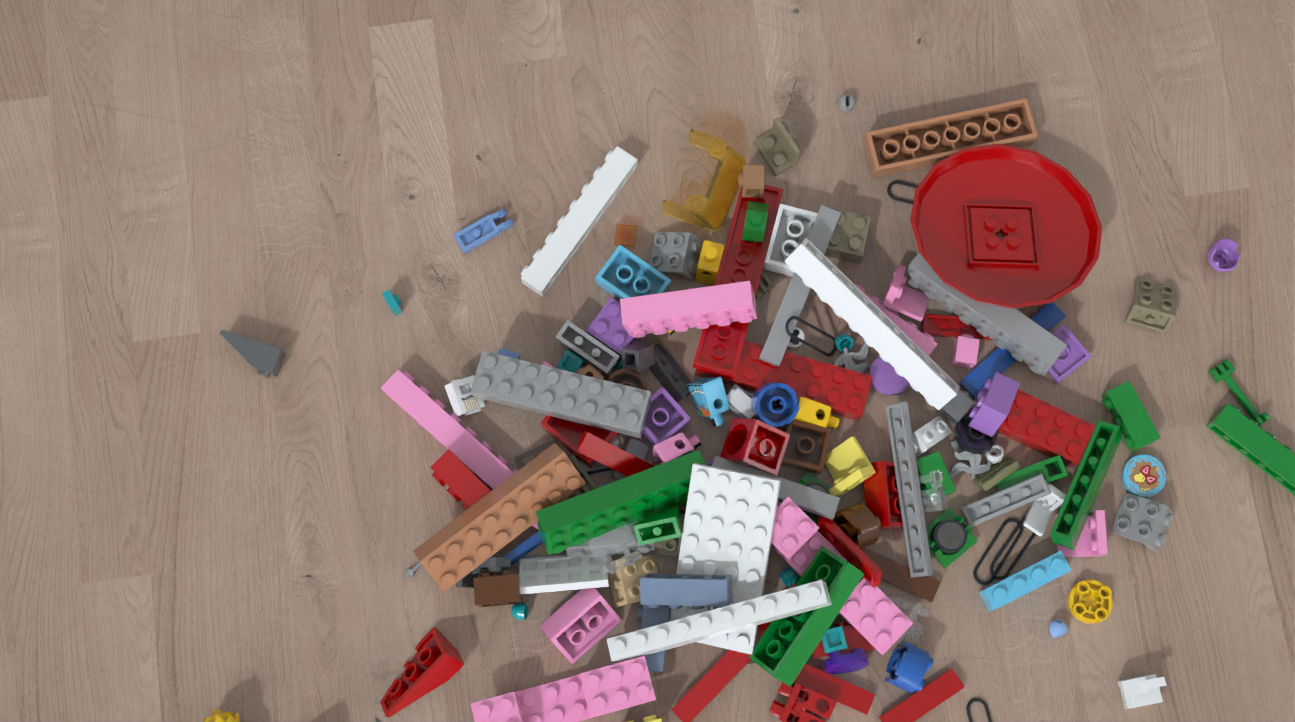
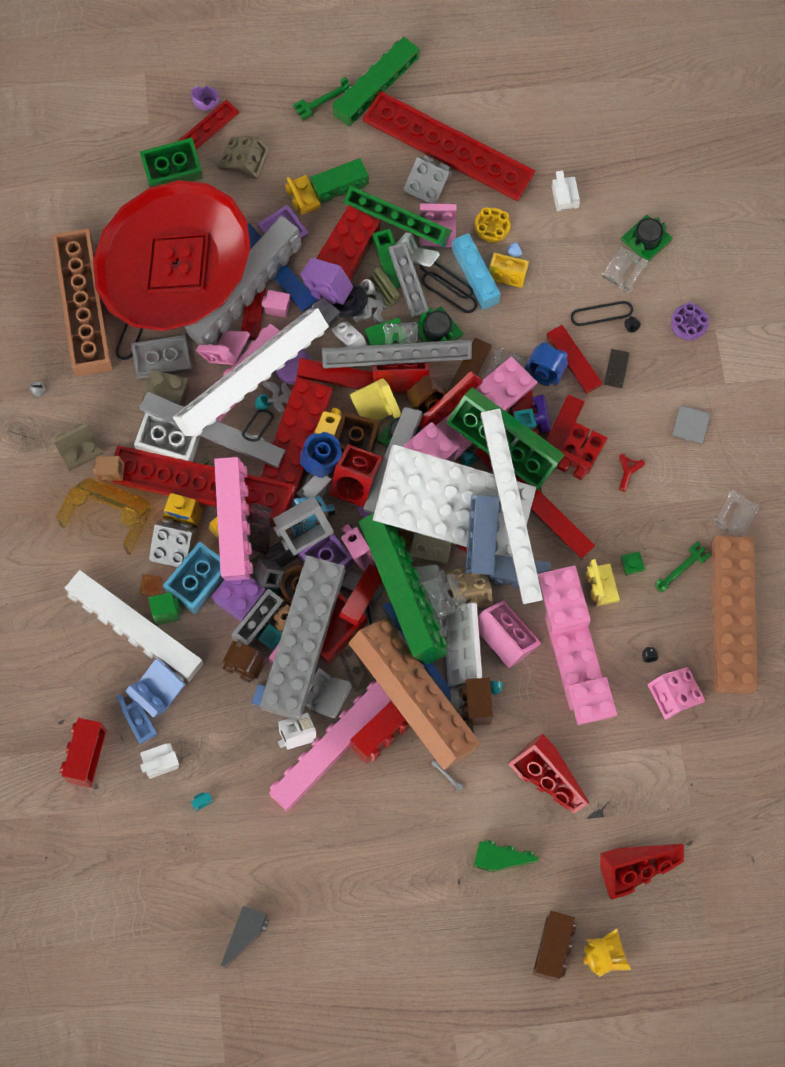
camera: 90 degrees left, 5 degrees down
(230, 678) = (554, 946): none -> reddish brown brick
(329, 616) = (497, 858): none -> green slope
(435, 256) = (159, 760): none -> white piece
(440, 179) = (83, 752): none -> red piece
(506, 425) = (327, 694): none -> light grey bracket
(509, 246) = (156, 688): none -> medium blue bracket
(539, 335) = (243, 661): none -> reddish brown brick
(596, 248) = (164, 608): none -> green brick
(659, 526) = (426, 556): green slope -> none
(687, 343) = (260, 528): none -> clear smoke tile
(700, 383) = (296, 515): none -> light grey window
(755, 222) = (149, 466): green slope -> none
(879, 435) = (338, 376): none -> red tile
(892, 229) = (162, 355): none -> light grey tile
(1031, 620) = (508, 270): none -> yellow bracket
(1108, 375) = (303, 194): none -> yellow bracket
(1129, 222) = (171, 163): none -> green brick
(1143, 476) = (389, 176): tile -> none
(1185, 261) = (211, 124): none -> red tile
(1190, 547) = (449, 146): none -> red plate

